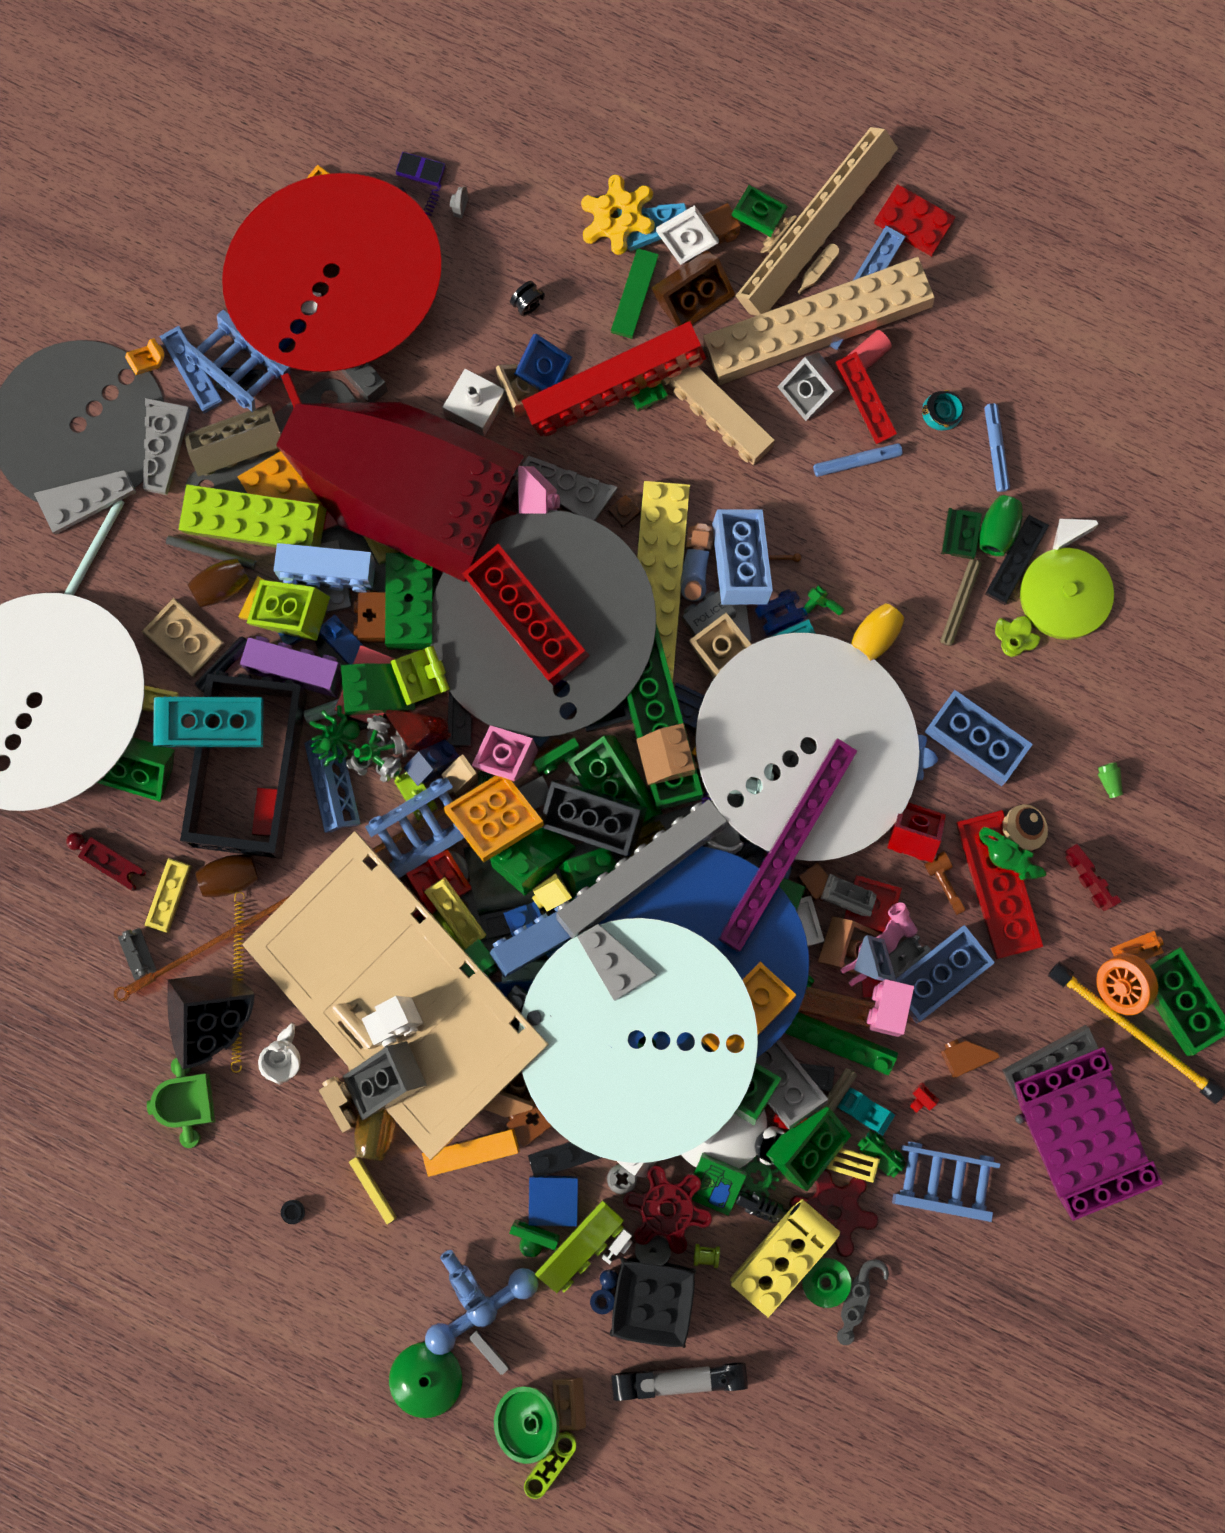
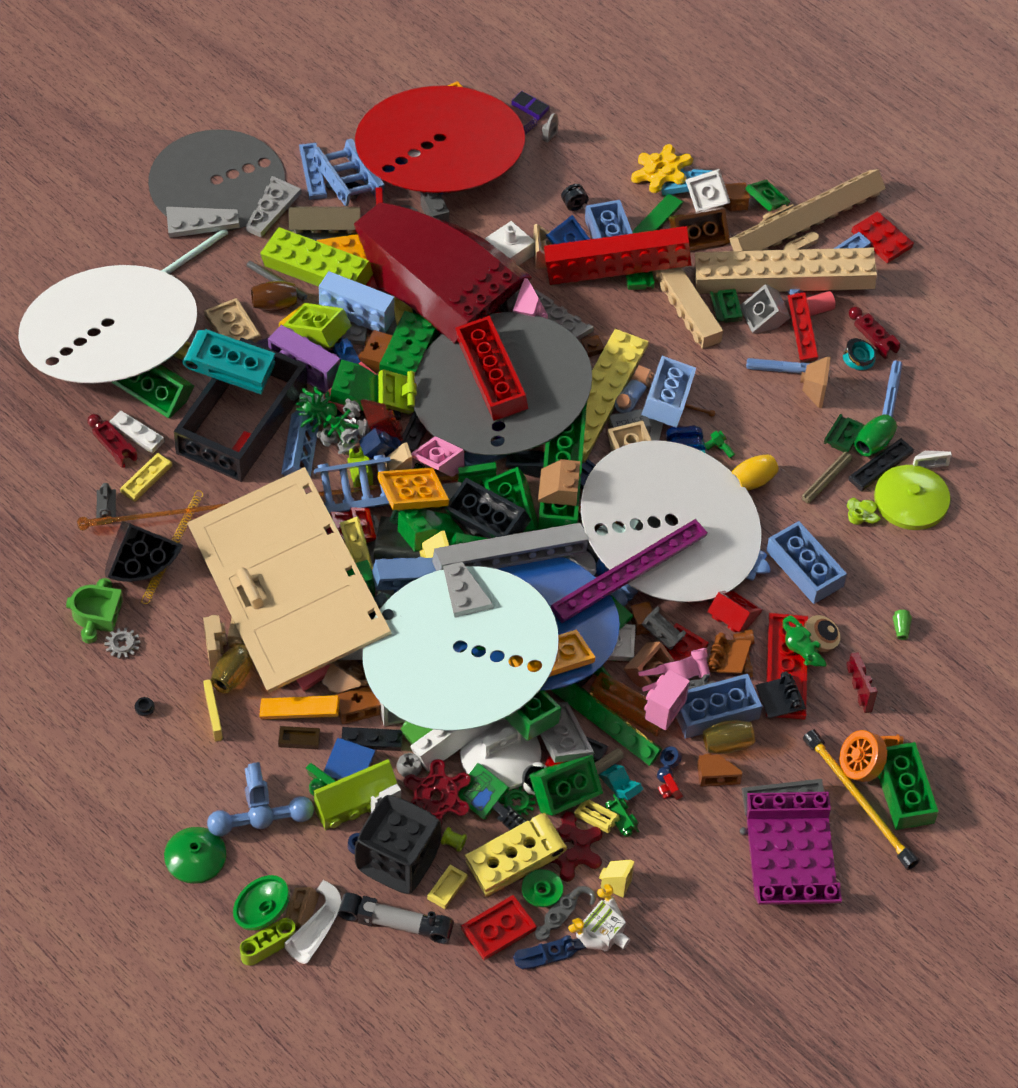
camera: 15 degrees right, 25 degrees down
(130, 836) = (137, 432): none -> white plate
(146, 358) = (284, 154): light orange bracket -> none
(223, 1139) = (121, 636): none -> light grey gear
(226, 875) = (196, 473): reddish brown piece -> none
(281, 1058) = (183, 600): white hair -> none
(384, 1079) = (256, 624): dark grey slope -> none
(392, 1020) = (281, 585): white brick -> none
(483, 1185) = (299, 737): none -> dark brown tile
(489, 1352) = (254, 848): light grey tile -> none
(586, 331) = (607, 220): none -> medium blue brick
(595, 1436) = (311, 934): none -> white animal
(720, 1315) = (447, 886): none -> light yellow tile
(763, 395) = (726, 306): none -> dark green plate
(795, 1349) = (498, 927): none -> red plate
(852, 1361) = (542, 954): none -> dark blue piece
(875, 959) = (666, 663): sand blue slope -> none
(904, 1240) = (618, 875): none -> light yellow slope
(908, 472) = (815, 380): none -> medium nougat slope
(909, 1078) = (665, 757): none -> dark blue plate
(910, 1307) = (603, 925): none -> white torso
(930, 897) = (728, 655): none -> dark orange hinge
(949, 370) = (874, 332): none -> dark red plate
(954, 1204) = (657, 867): medium blue fence -> none
(967, 1010) = (728, 737): none -> clear yellow piece
(1008, 935) = (780, 696): none -> black hinge

